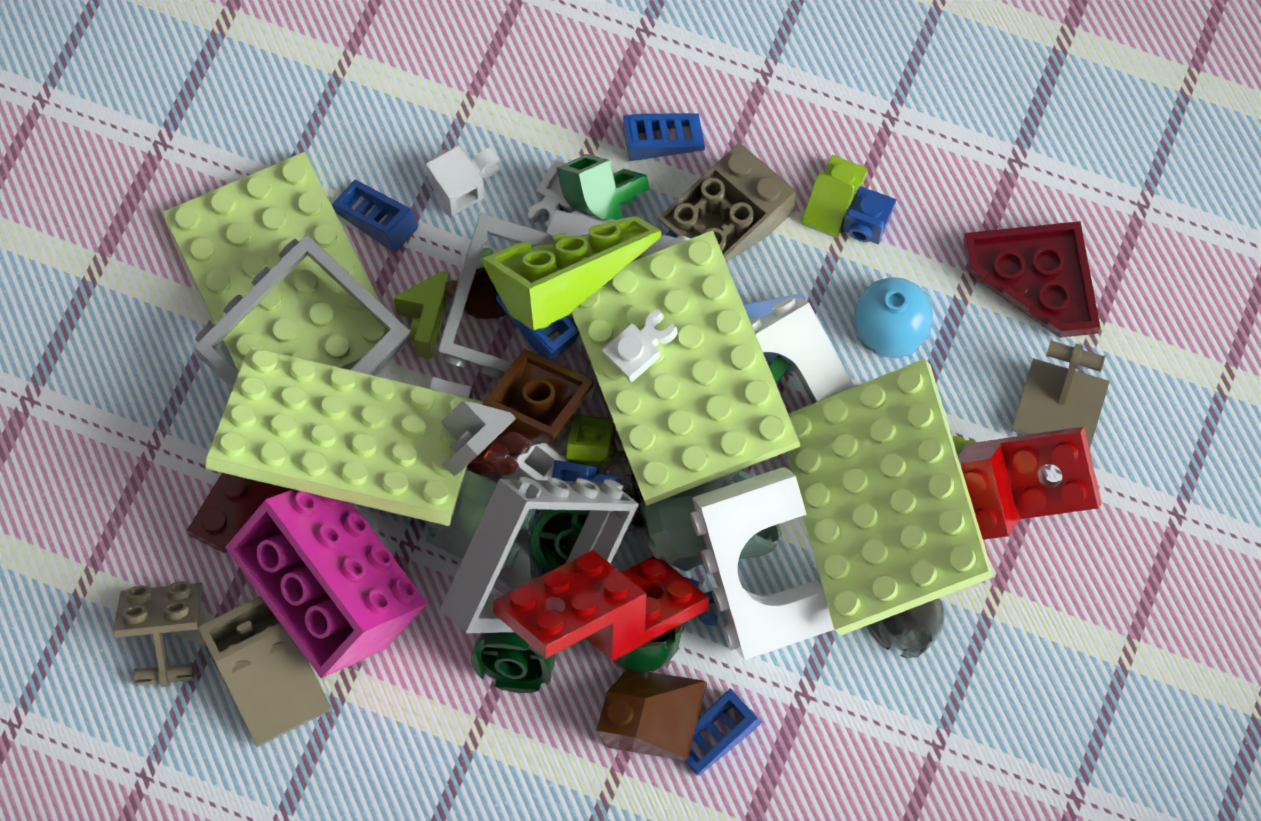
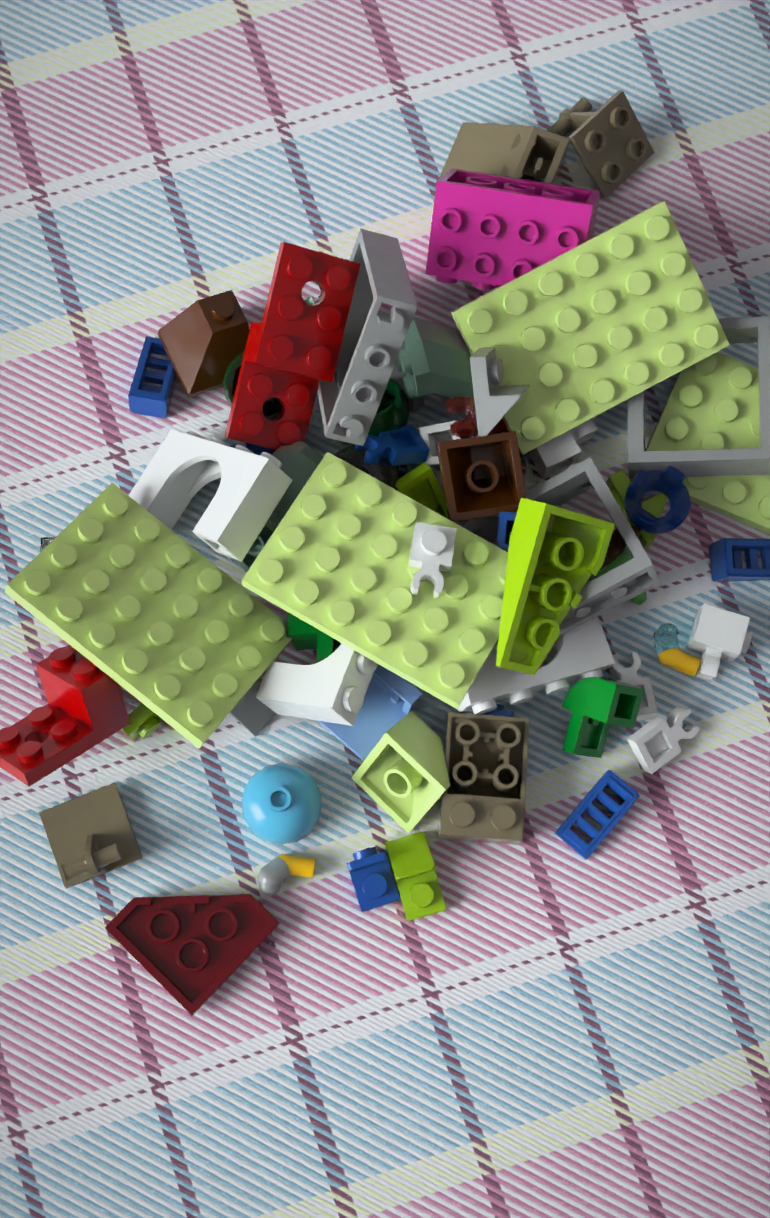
camera: 140 degrees right, 10 degrees up
(411, 269) = (668, 482): none -> clear blue piece
(503, 195) = (669, 651): none -> arm
(567, 144) = (658, 739): none -> white plate
(778, 260) = (405, 771): none -> yellowish green slope
(930, 273) = (281, 868): none -> arm

